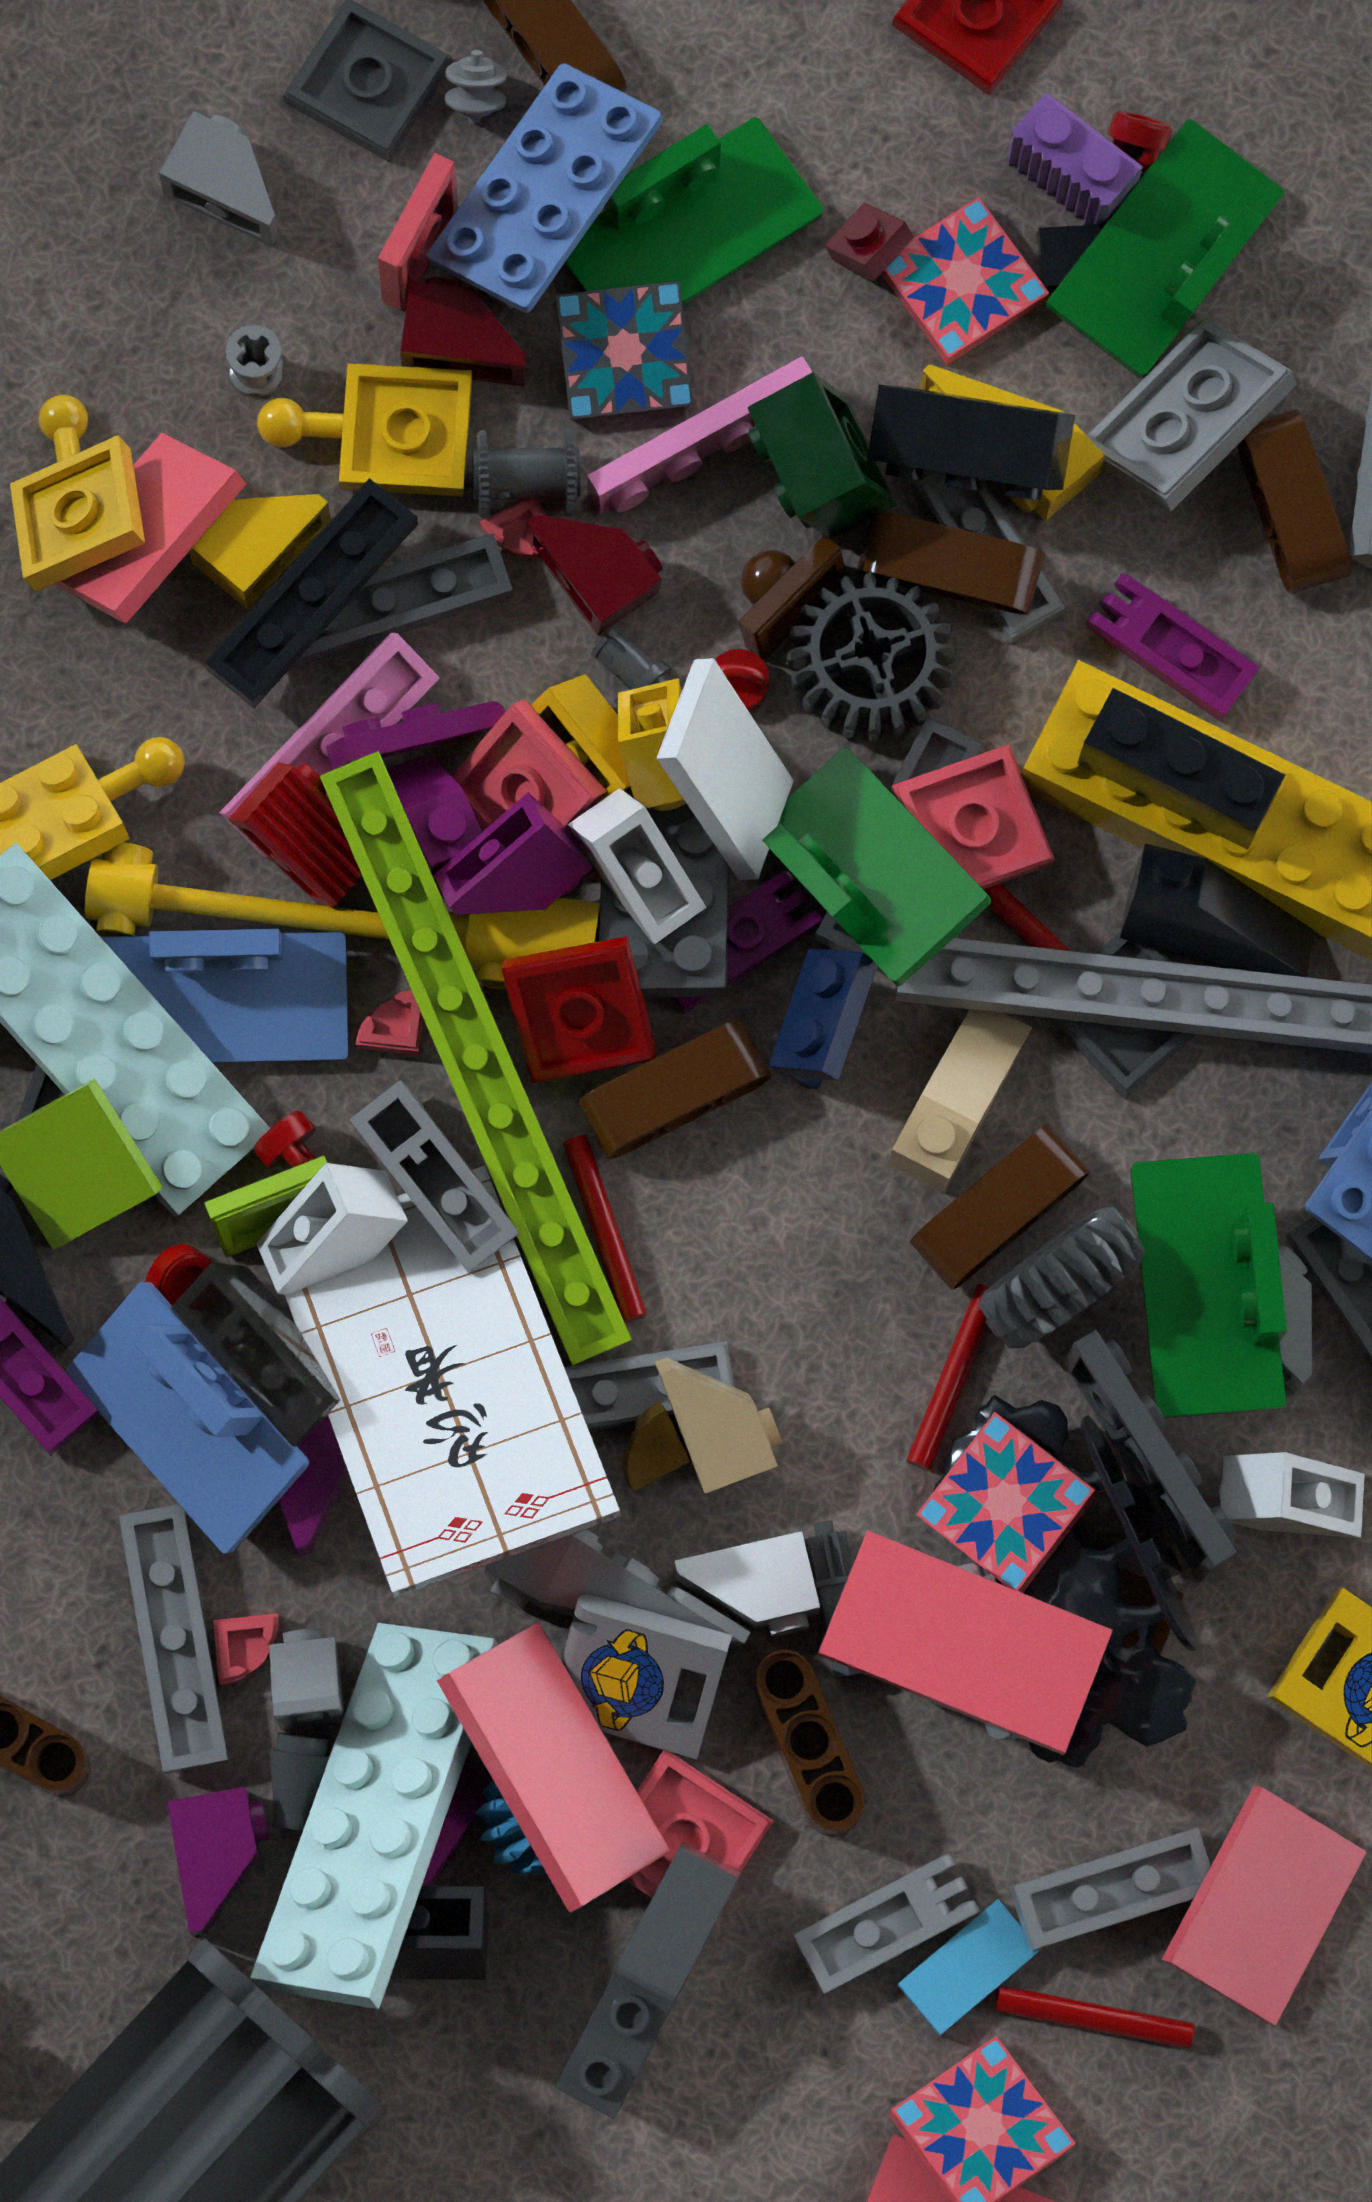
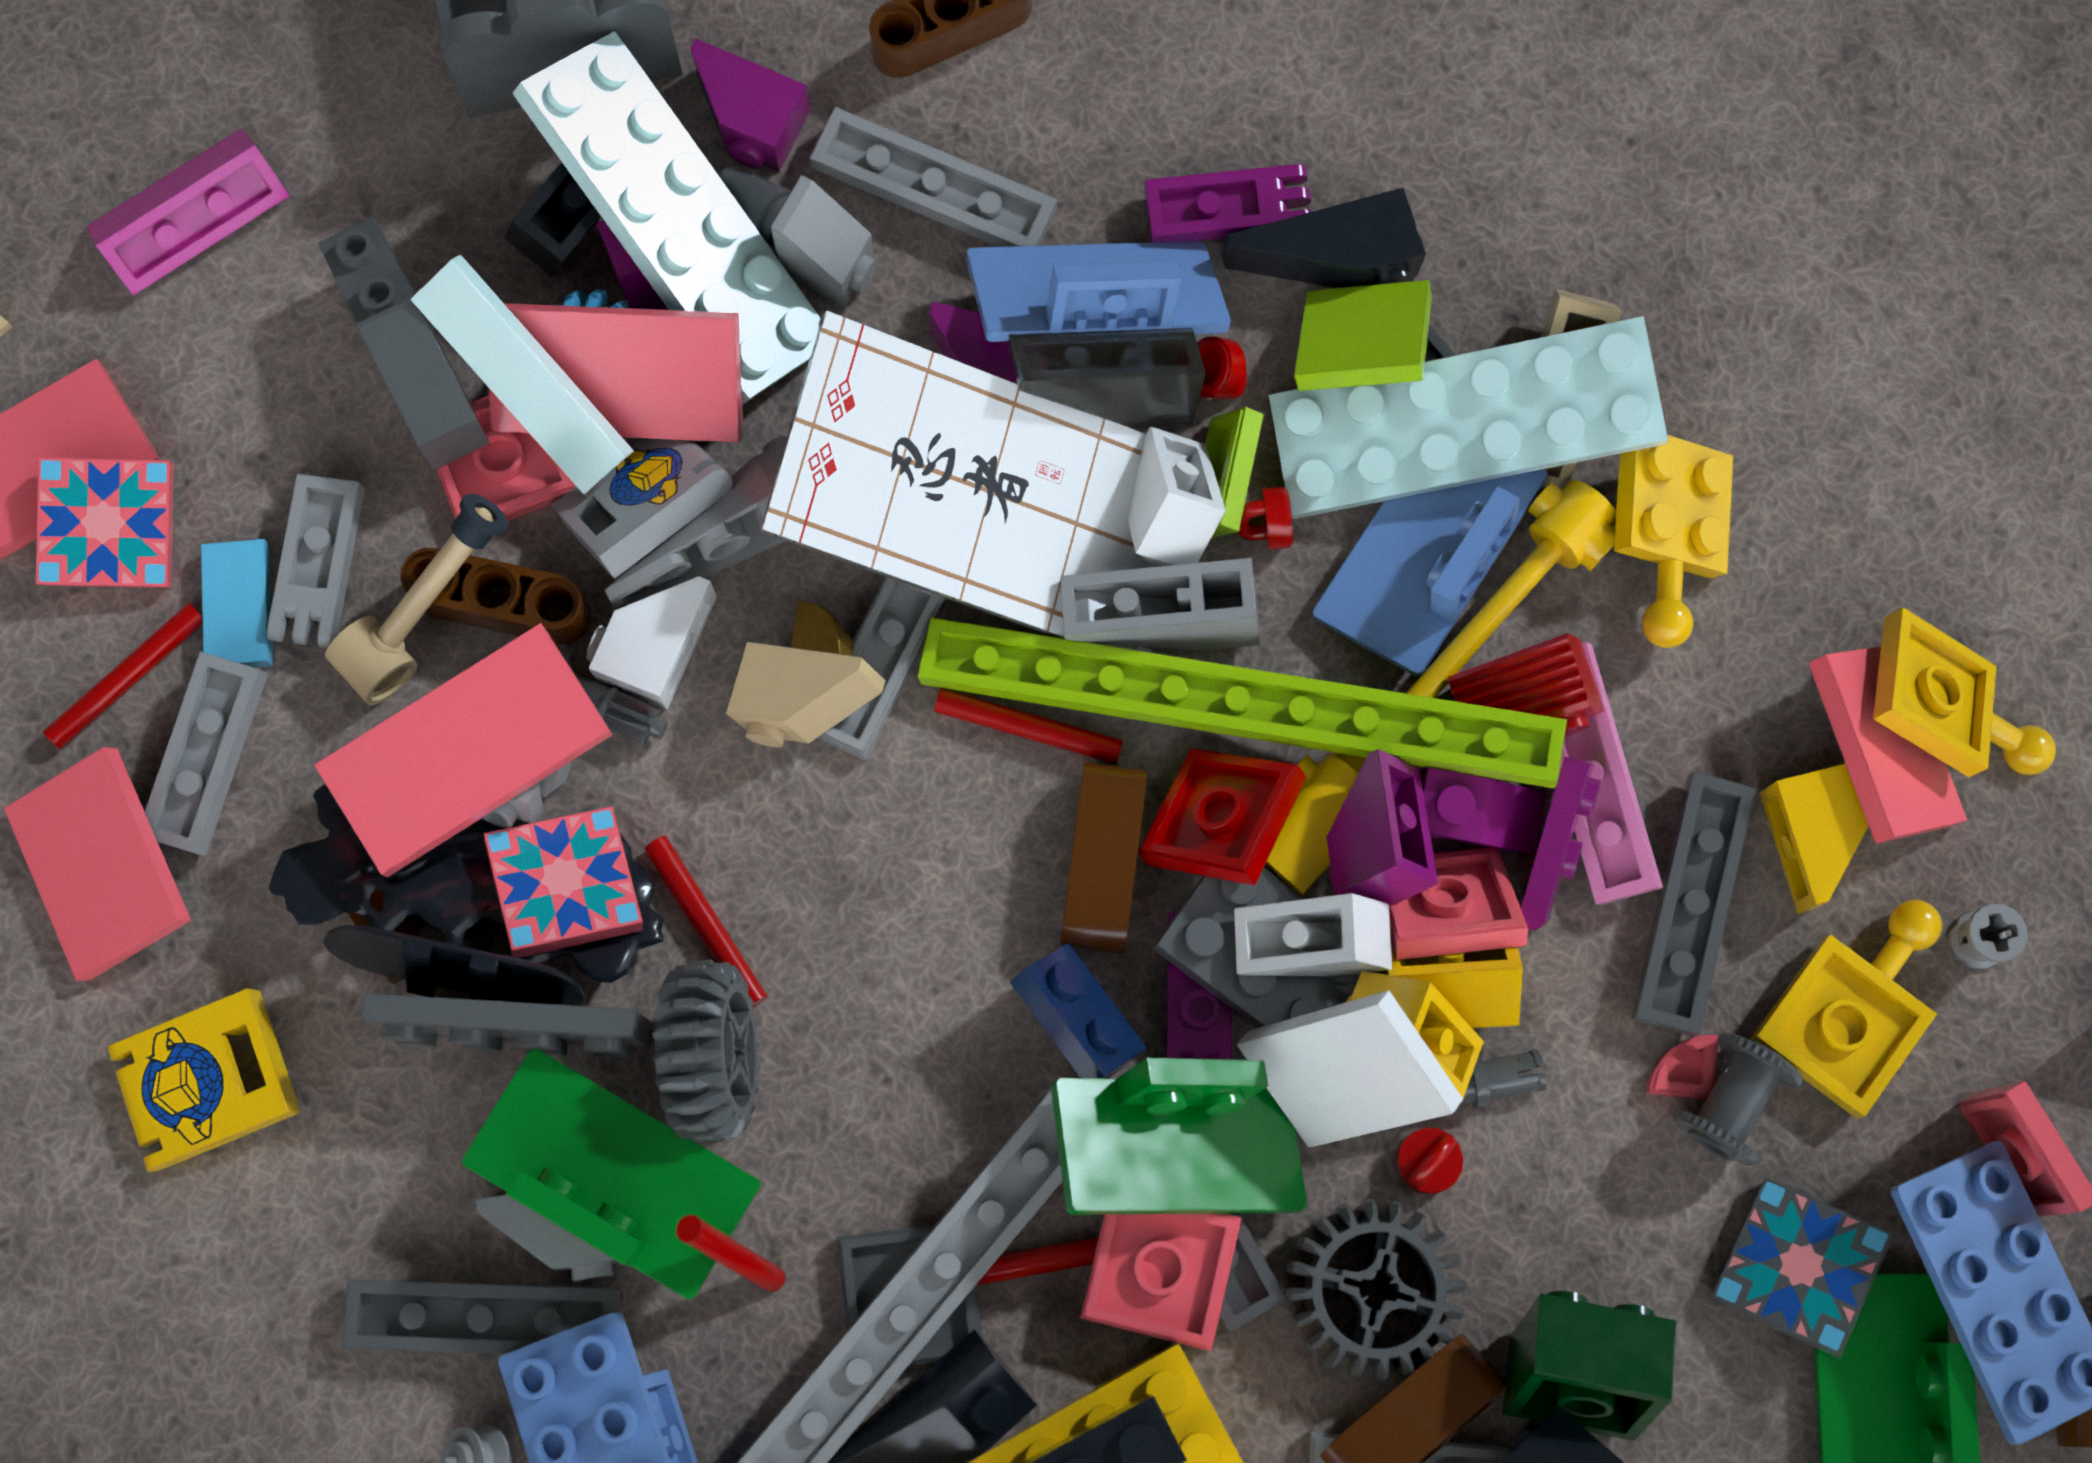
camera: 125 degrees right, 0 degrees up
(243, 1645) = (894, 234): coral tile -> none
(311, 593) = (1740, 837): black plate -> none
(393, 1027) = (1316, 660): coral tile -> none
(456, 331) = (1911, 1124): dark red slope -> none
(596, 567) = (1609, 1103): dark red slope -> none
(614, 1835) = (521, 374): none -> light aqua tile
(680, 449) = (1676, 1253): bright pink plate -> none
(781, 588) = (1489, 1254): reddish brown tile -> none
(931, 1806) = (374, 654): none -> tan piece
(958, 1097) = (932, 1089): tan slope -> none
(999, 1207) = (815, 1058): reddish brown beam -> none
(1202, 1145) = (730, 1253): none -> red bar
(1292, 1495) = (398, 1127): white slope -> none

